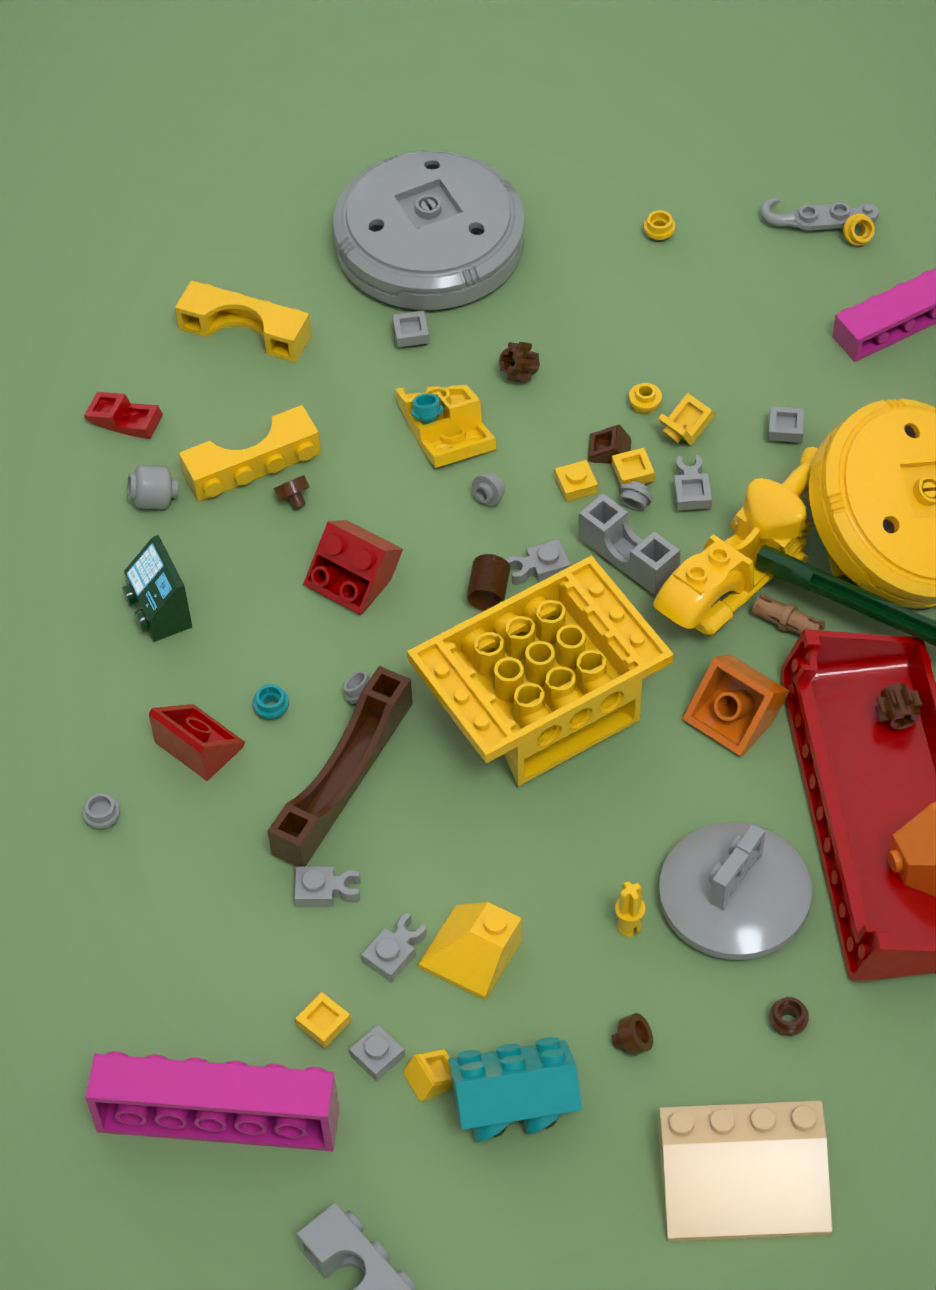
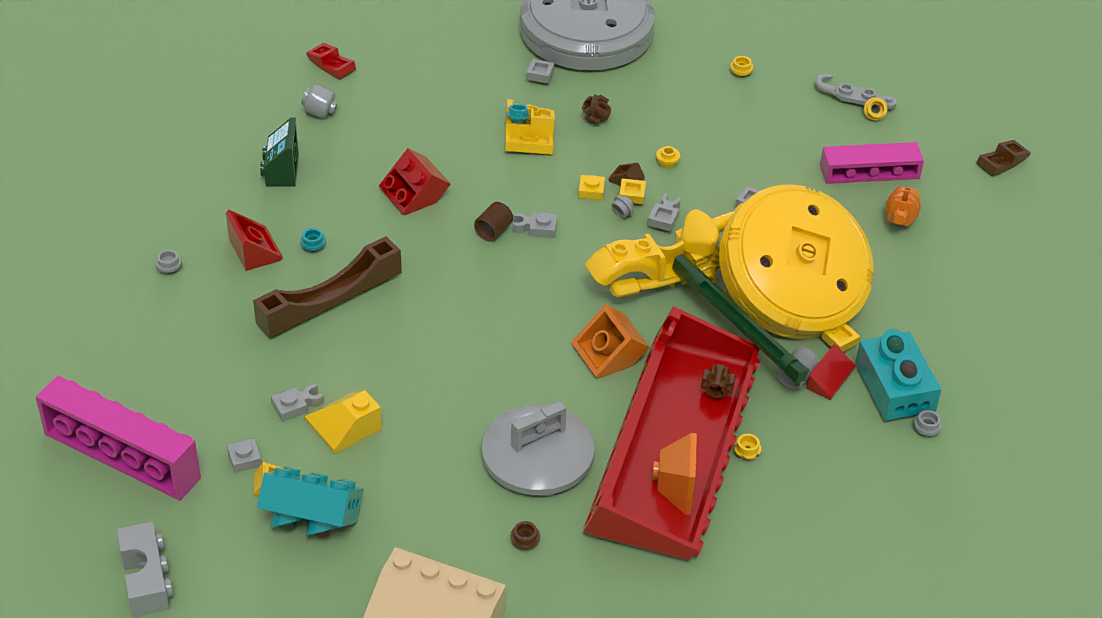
camera: 20 degrees right, 10 degrees down
(208, 309) = (421, 21): yellow arch -> none
(216, 469) = (417, 106): yellow arch -> none
(292, 490) = (405, 131): reddish brown tile -> none
(318, 886) = (275, 350): light grey plate -> none
(323, 1020) = (222, 422): yellow plate -> none
(488, 489) = (529, 171): light grey plate -> none
(544, 670) = (485, 273): yellow wedge -> none
(608, 532) = (590, 220): light grey arch -> none
(630, 909) = (456, 429): yellow axle -> none
(633, 1035) = (413, 505): reddish brown tile -> none
(687, 420) = (686, 176): yellow bracket -> none
(785, 616) = (670, 299): medium nougat pin -> none

